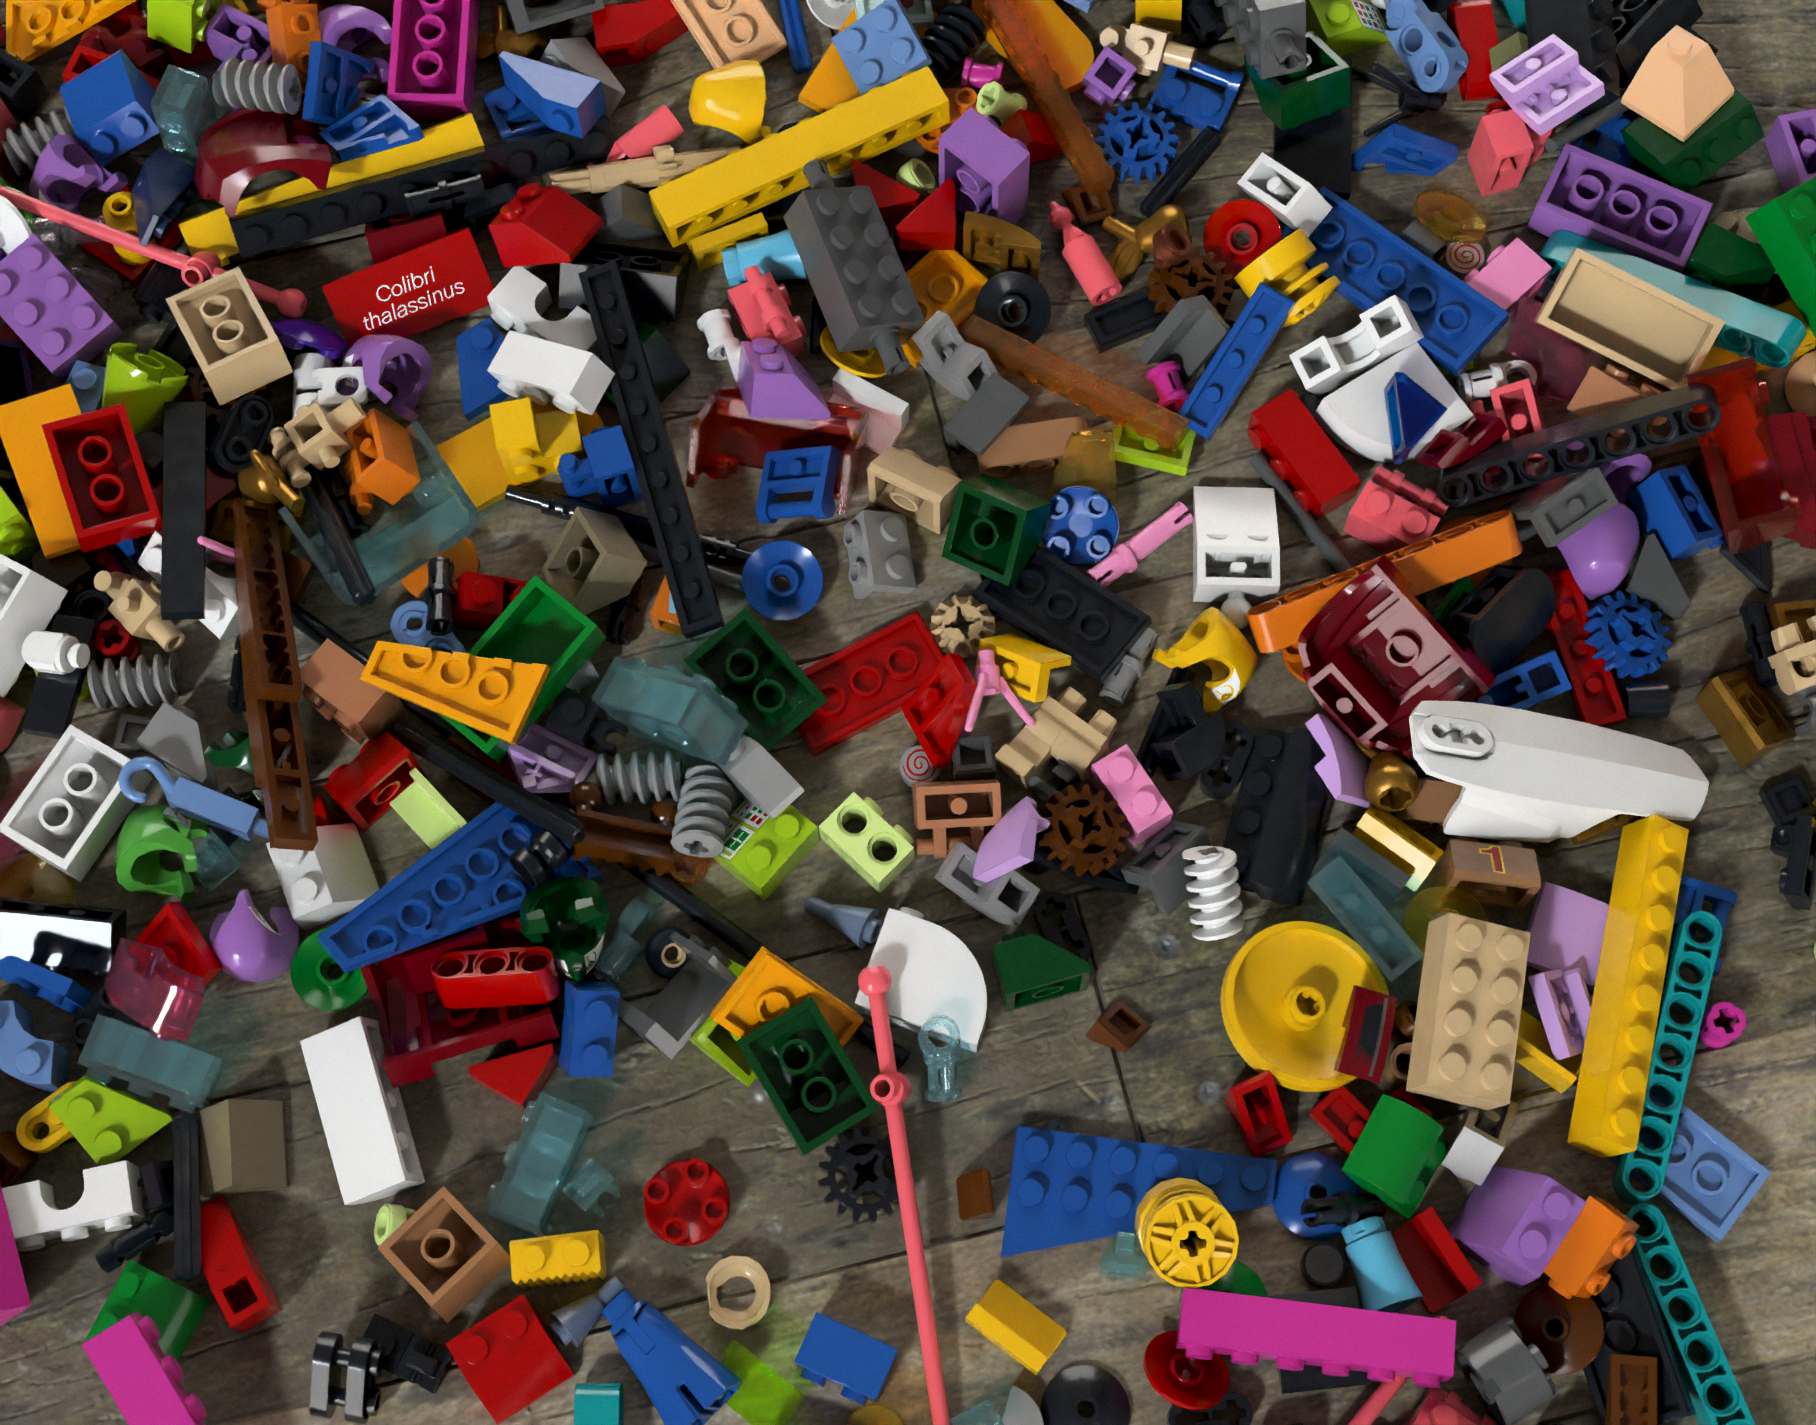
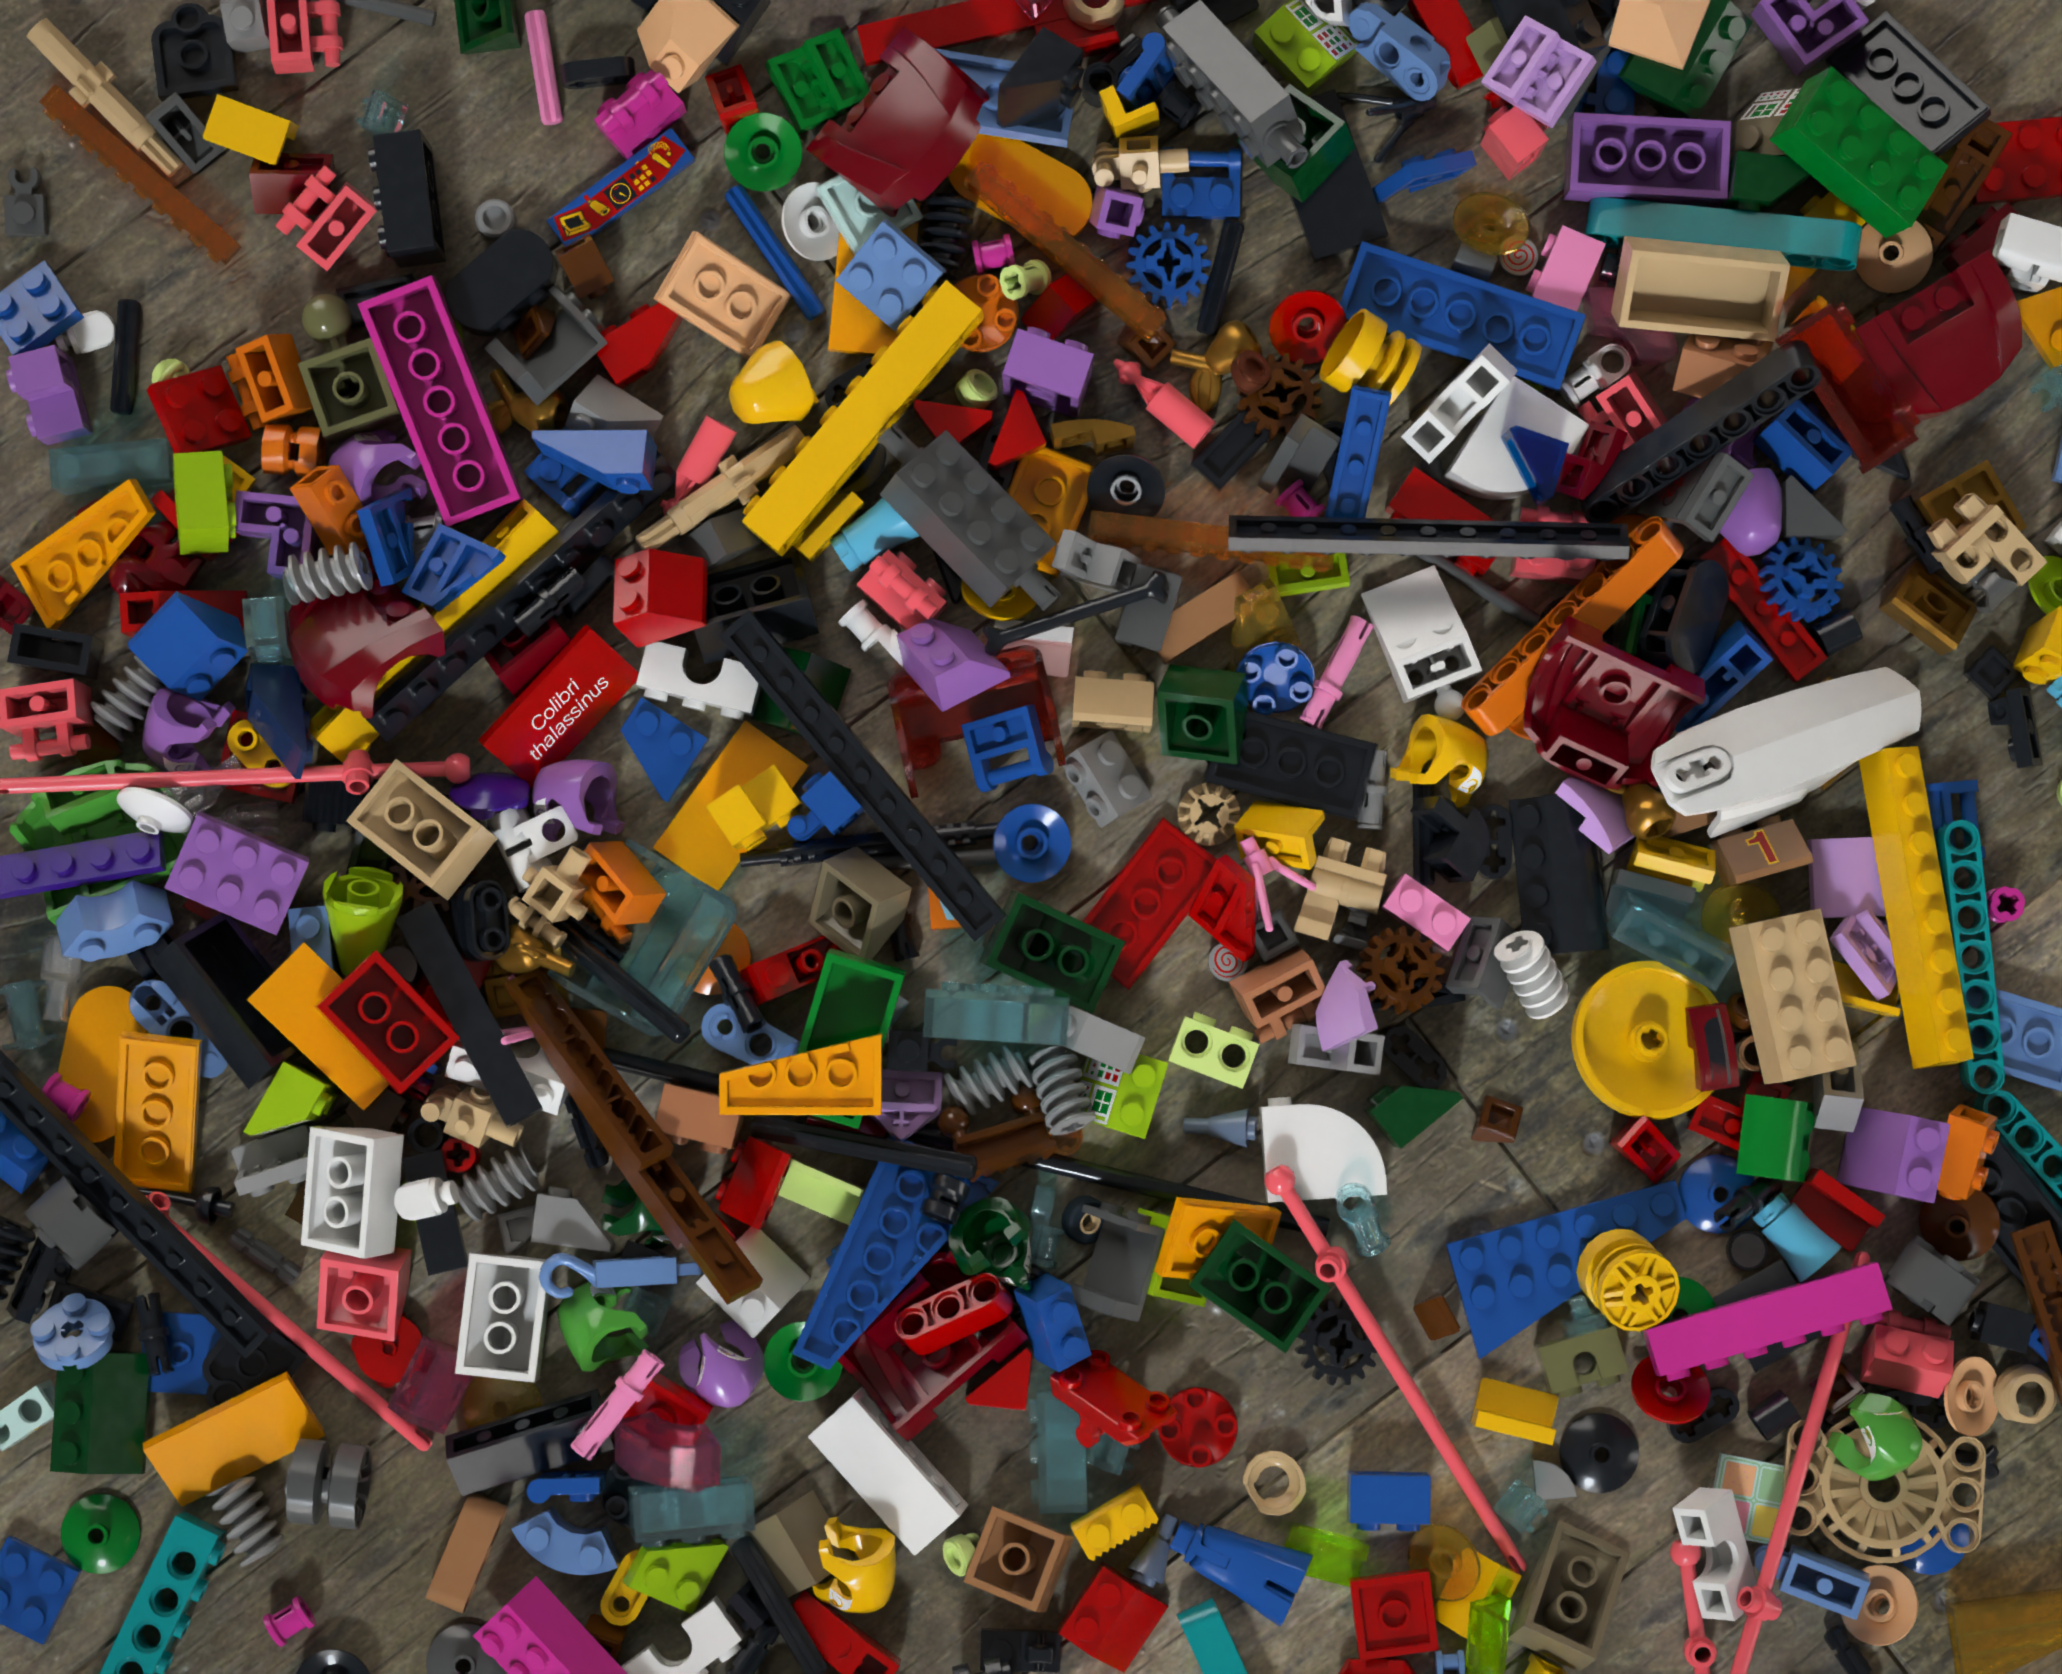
camera: 25 degrees left, 15 degrees up
(144, 912) = (611, 1412): none -> bright pink pin
(282, 1203) = (862, 1583): none -> yellow piece
(550, 373) = (737, 744): white brick -> none
(606, 1127) = (1110, 1401): none -> red shield
(995, 394) = (1150, 589): none -> black piece
(1130, 1290) = (1558, 1355): none -> olive brick
(1285, 194) = (1333, 275): white brick -> none
(1292, 450) = (1428, 537): none -> black plate

